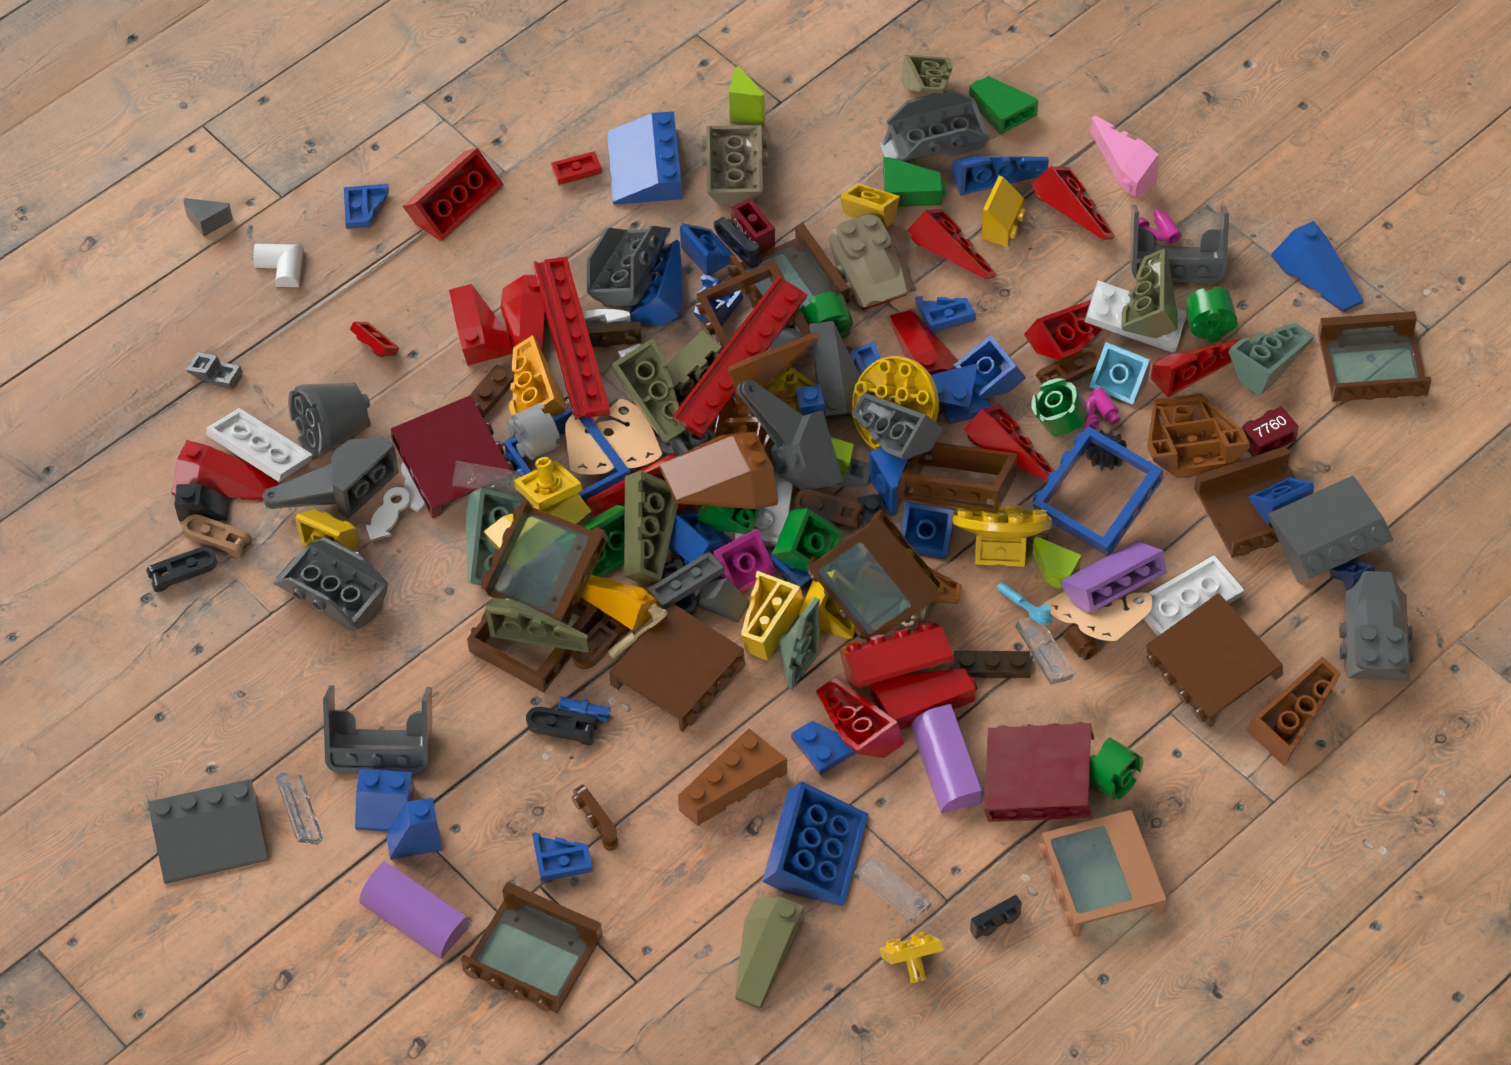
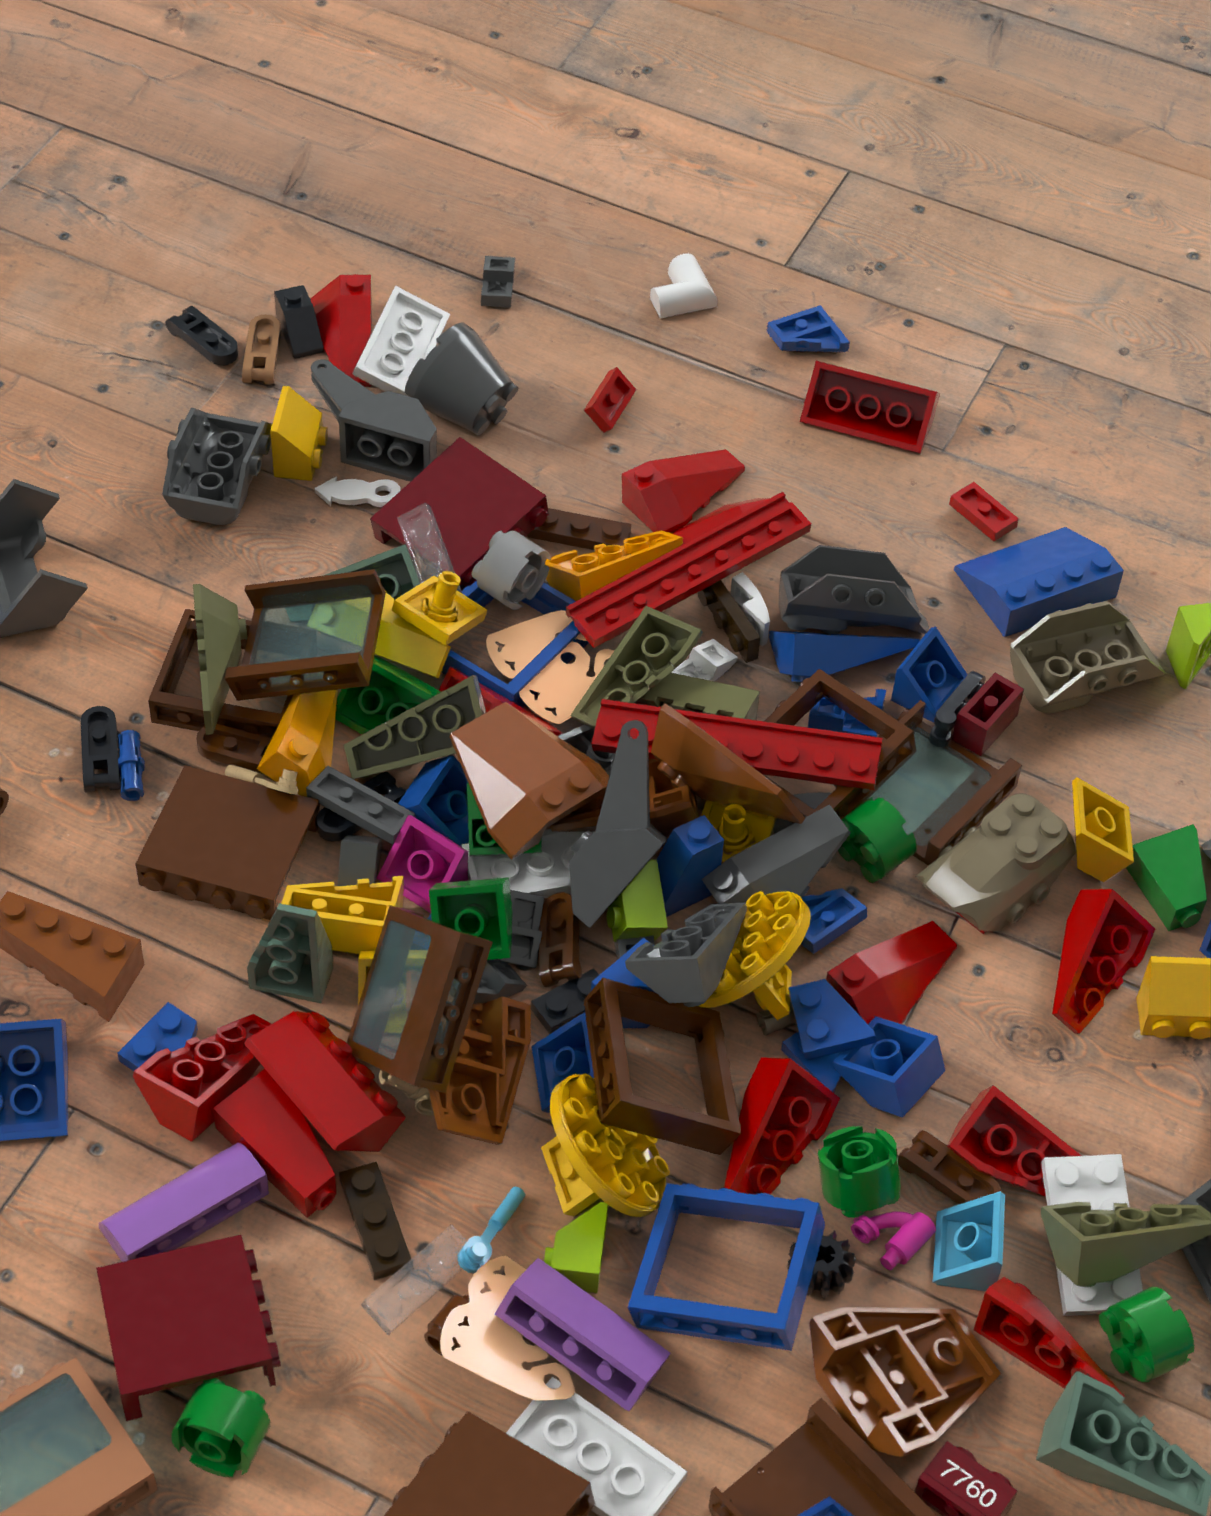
camera: 65 degrees right, 5 degrees down
(207, 215) = (712, 206): dark grey slope -> none
(945, 312) = (970, 984): blue wing -> none

